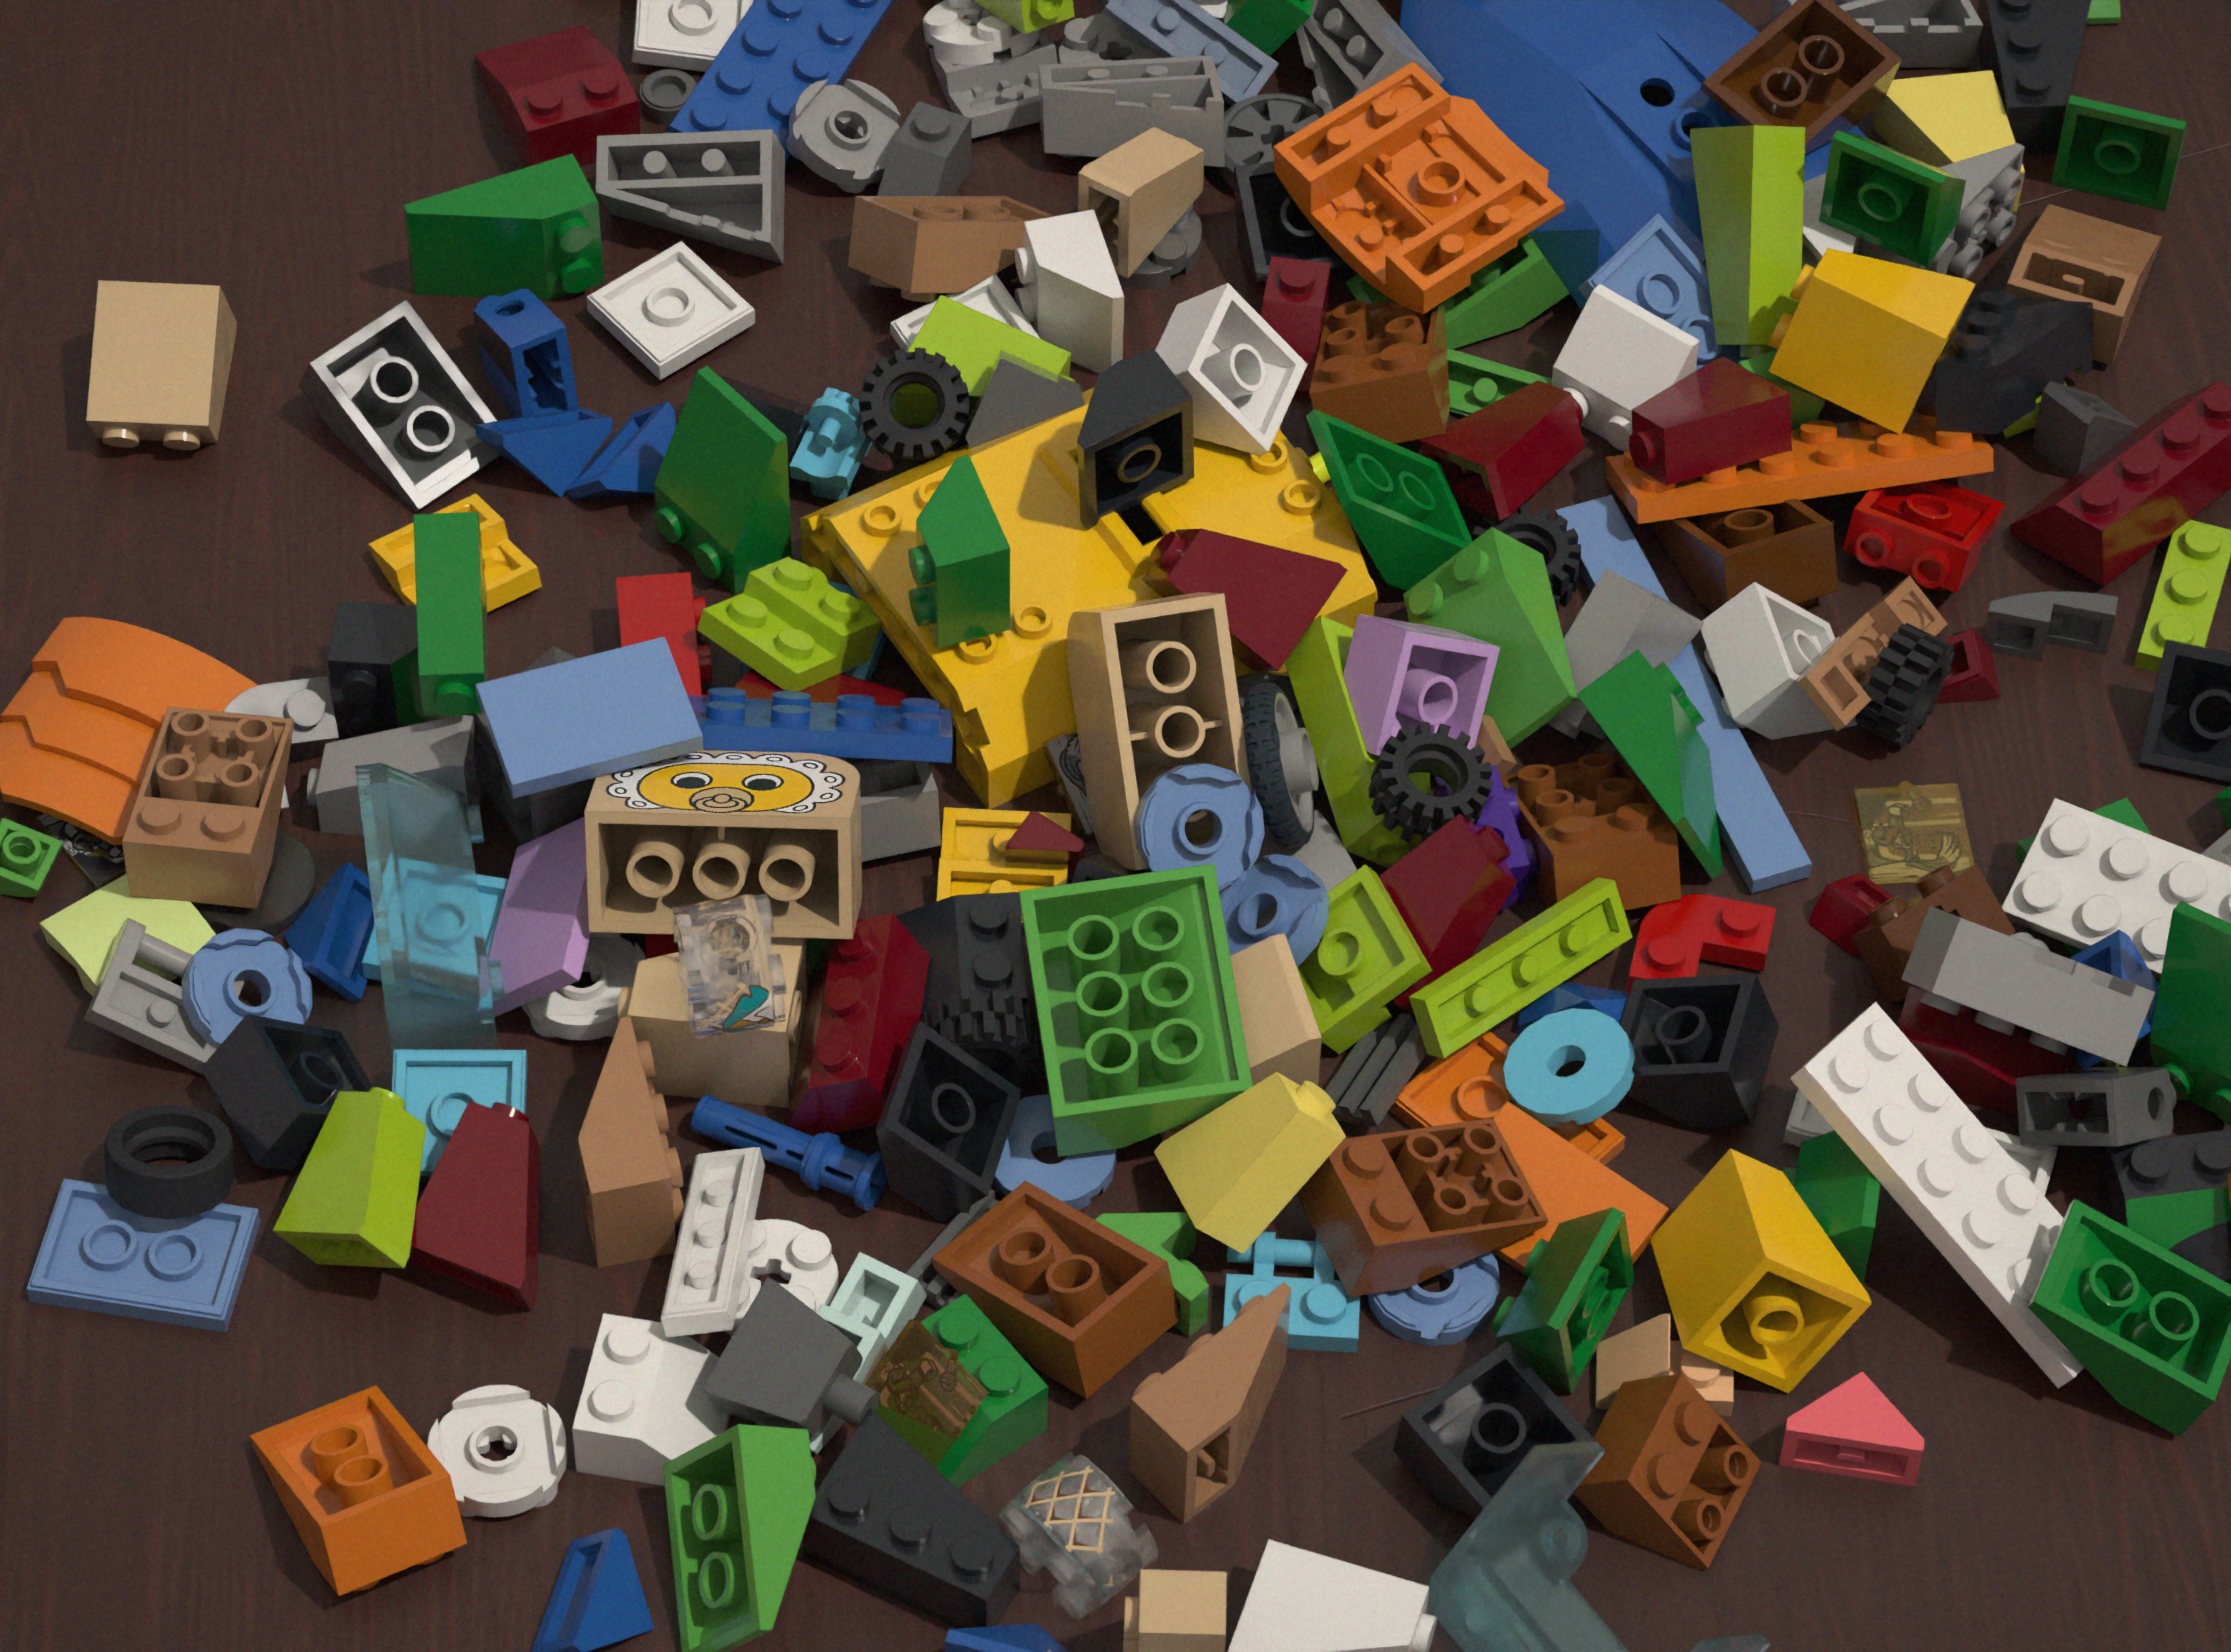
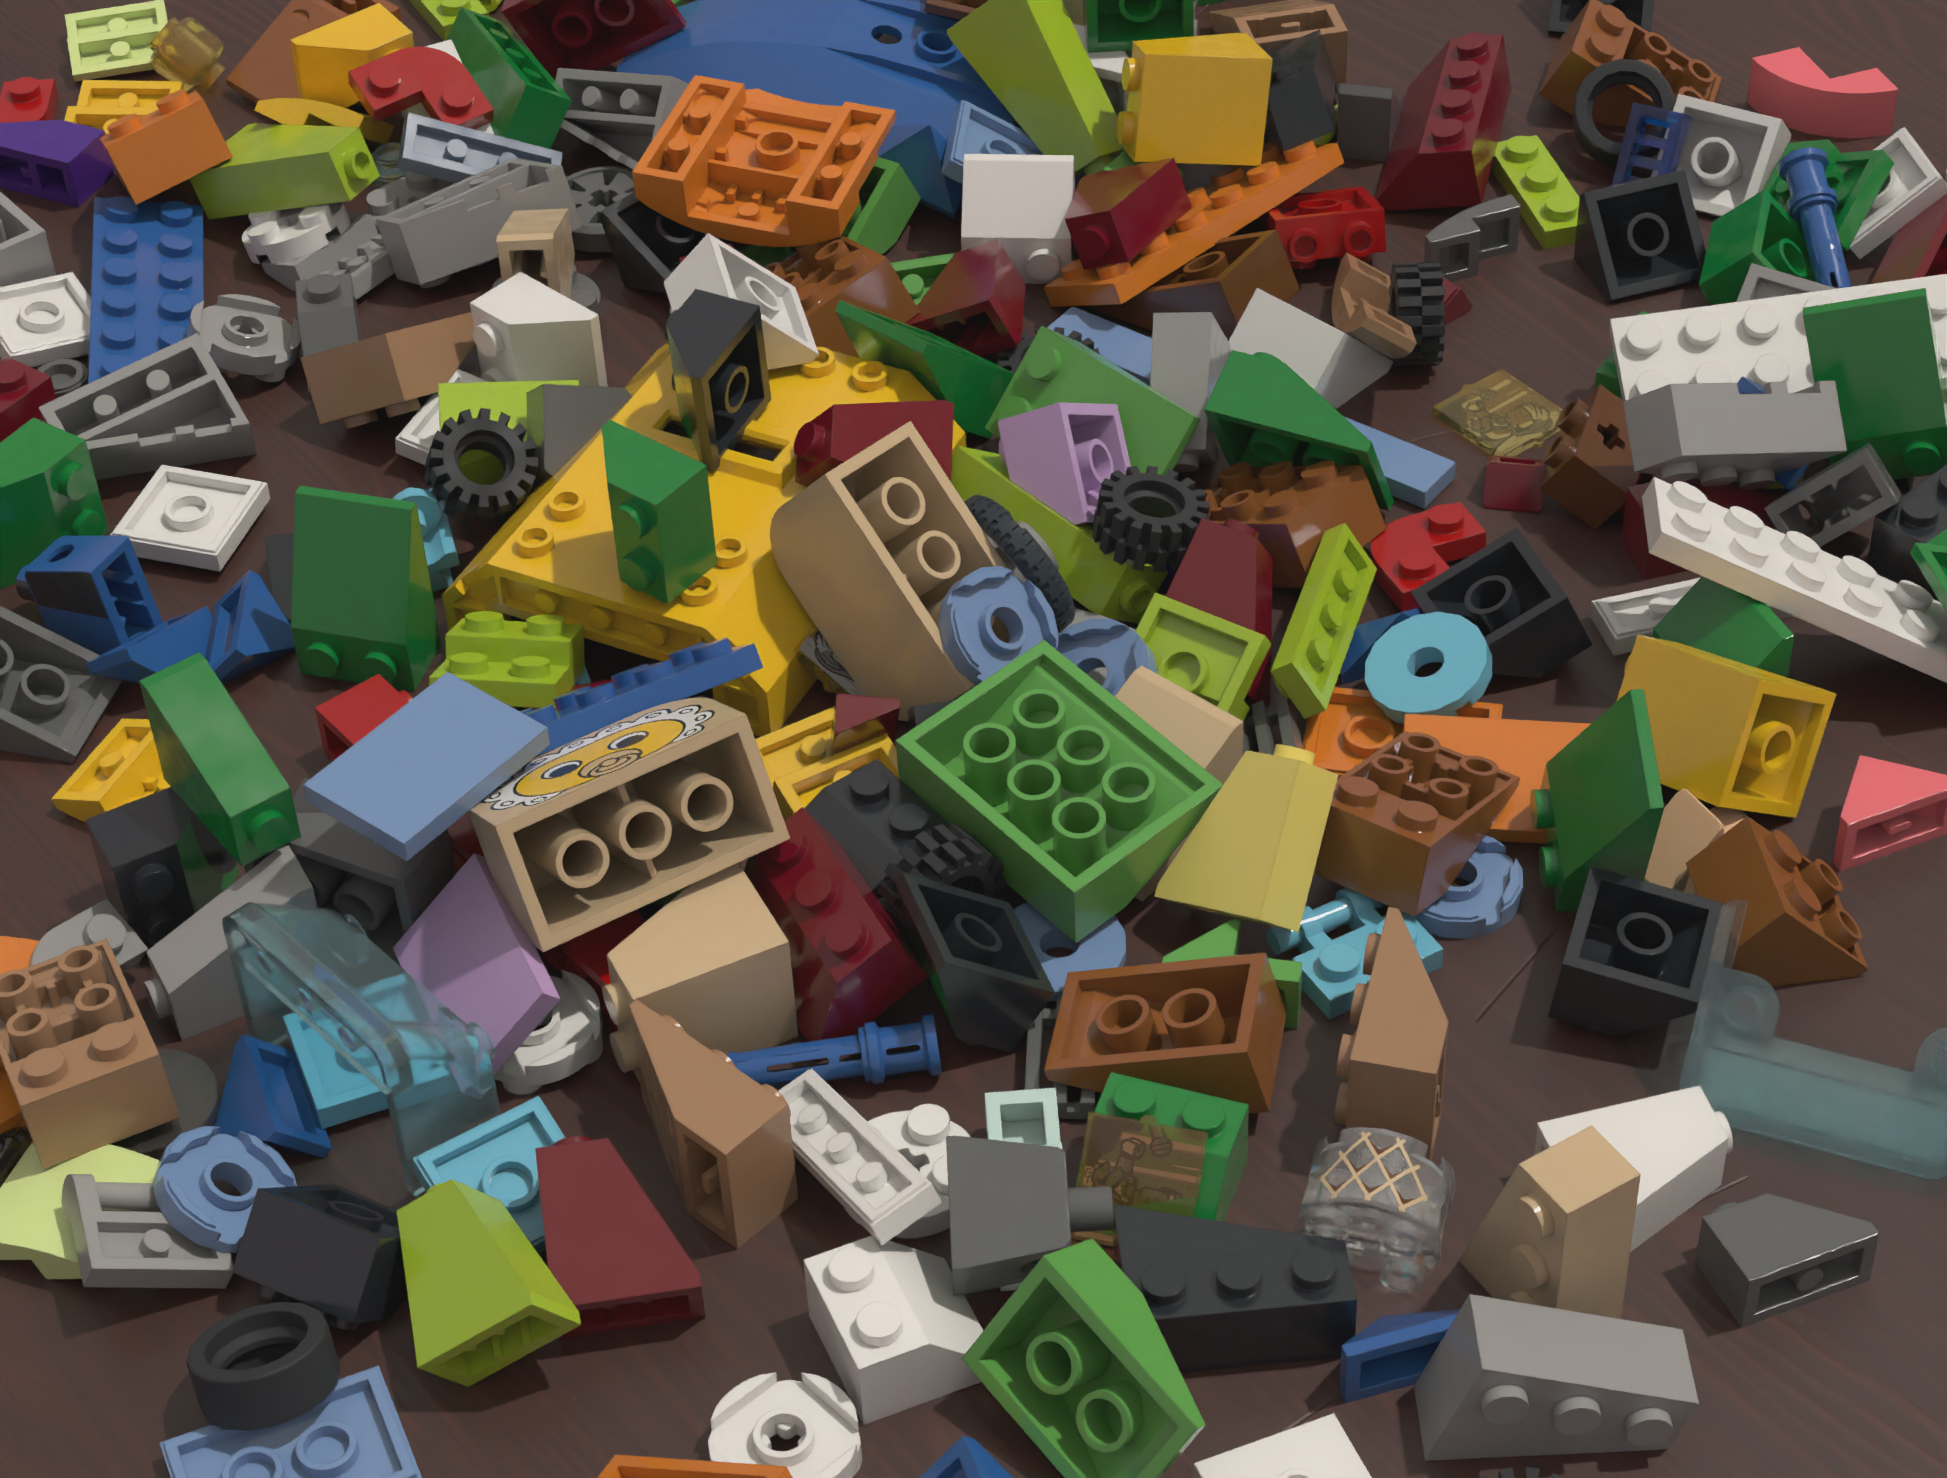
camera: 30 degrees left, 10 degrees down
(728, 965) = (713, 896): clear brick -> none

